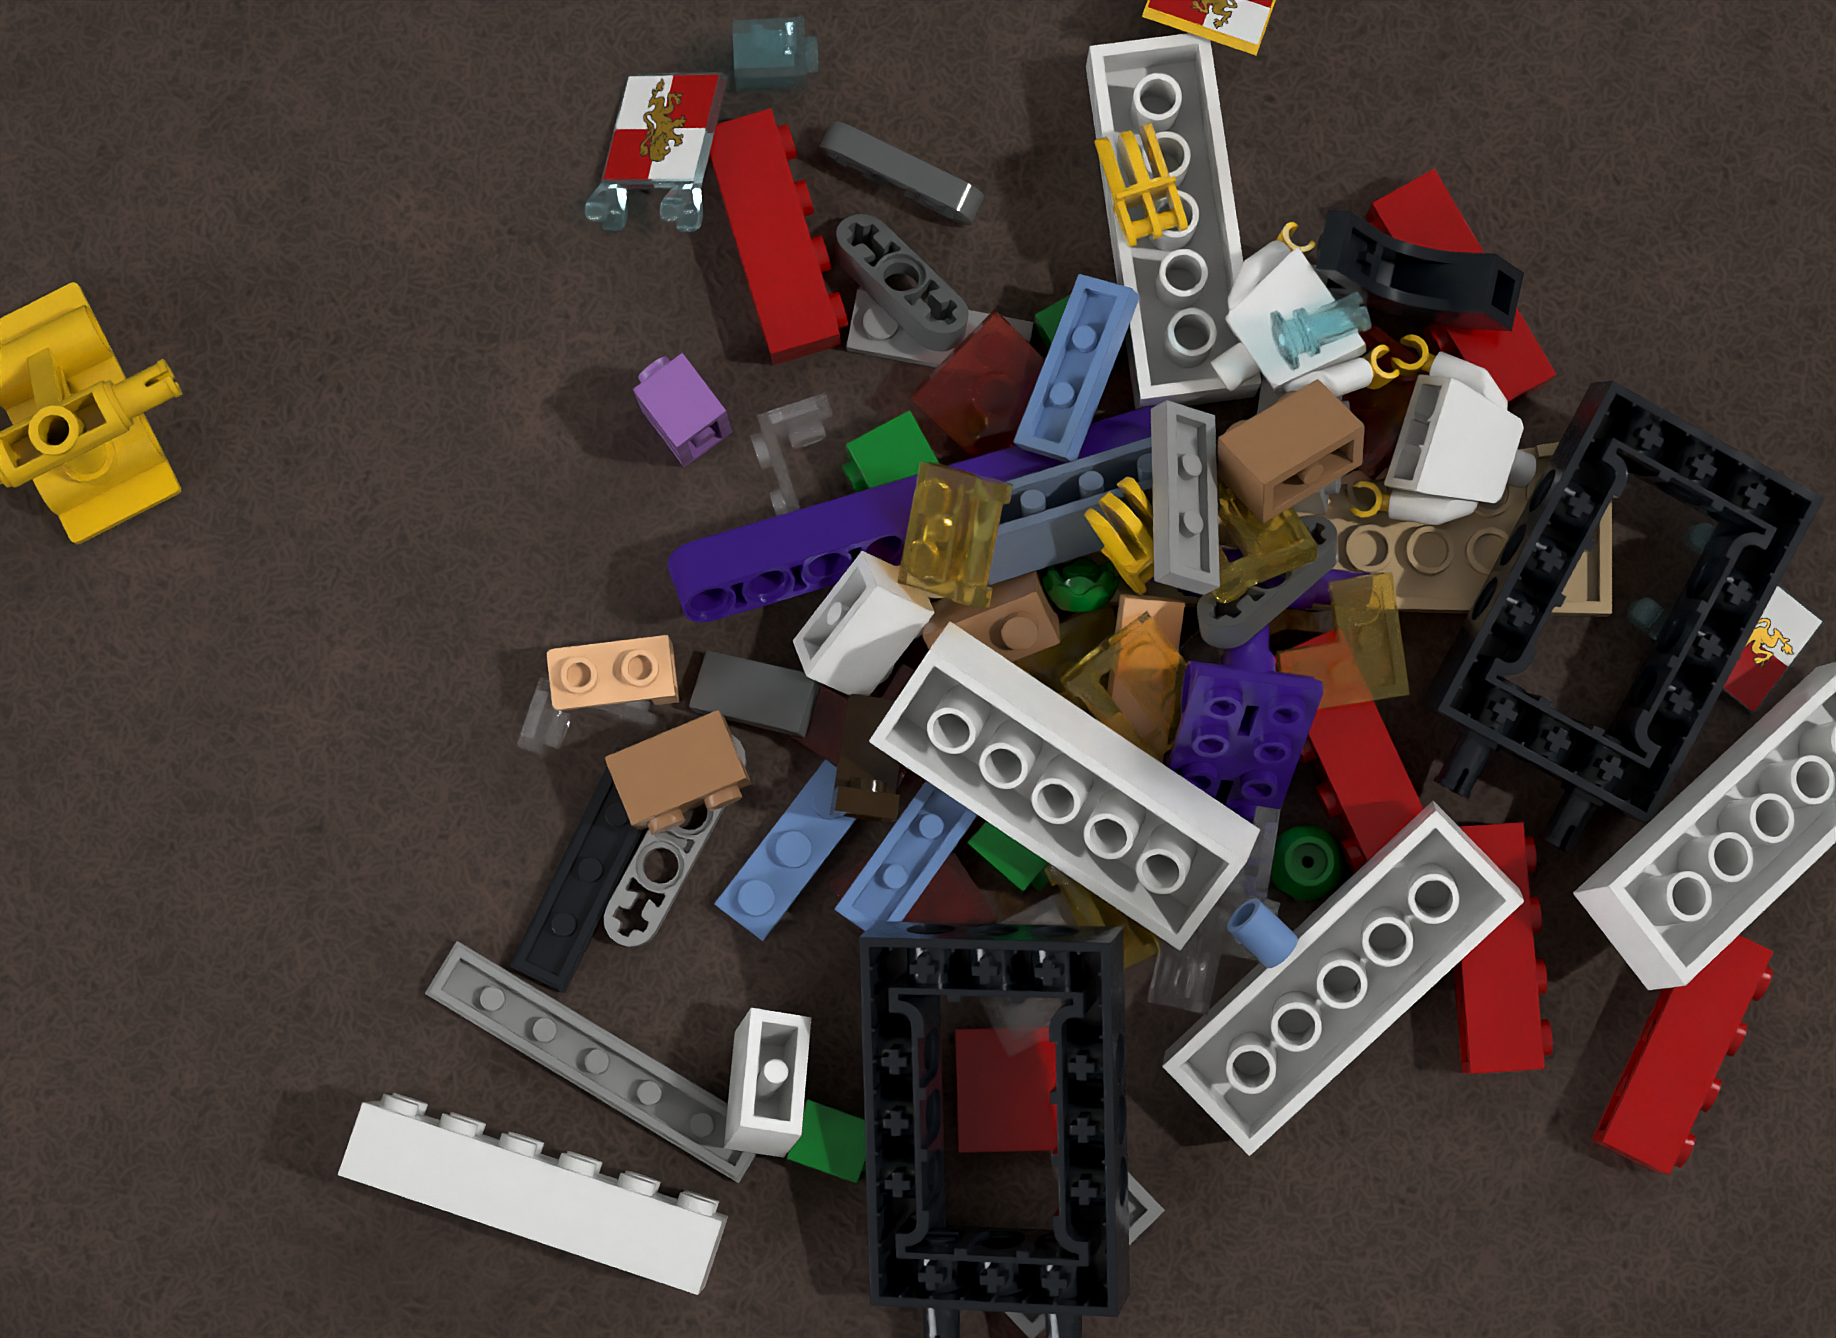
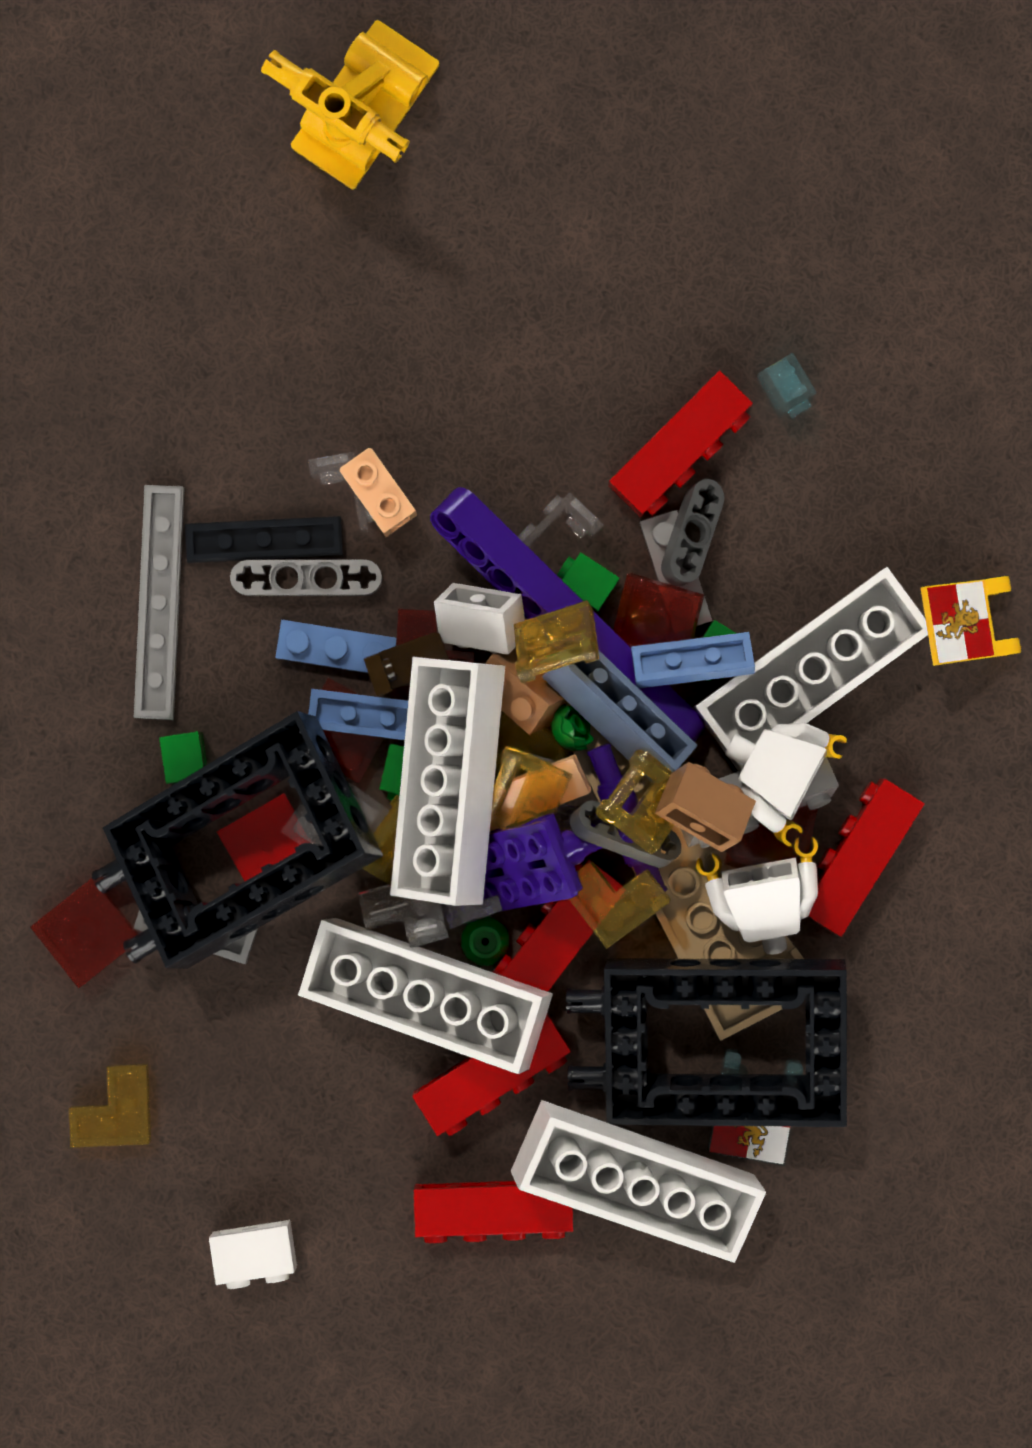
camera: 60 degrees right, 5 degrees up
(532, 1194) = (64, 607): white brick -> none
(660, 144) = (698, 351): flag -> none
(678, 773) = (341, 559): medium nougat brick -> none
(681, 408) = (550, 446): medium lavender brick -> none
(755, 693) = (411, 577): dark grey tile -> none
(767, 1082) = (195, 703): white brick -> none
(888, 164) = (758, 487): dark grey beam -> none
(1132, 545) = (608, 750): yellow arm -> none
(1142, 188) = (815, 642): yellow arm -> none
(1184, 498) = (644, 761): light grey plate -> none
(1262, 933) = (423, 936): medium blue hinge -> none
(1317, 327) = (783, 785): clear light blue pin -> none
(1417, 280) = (850, 827): black arch -> none

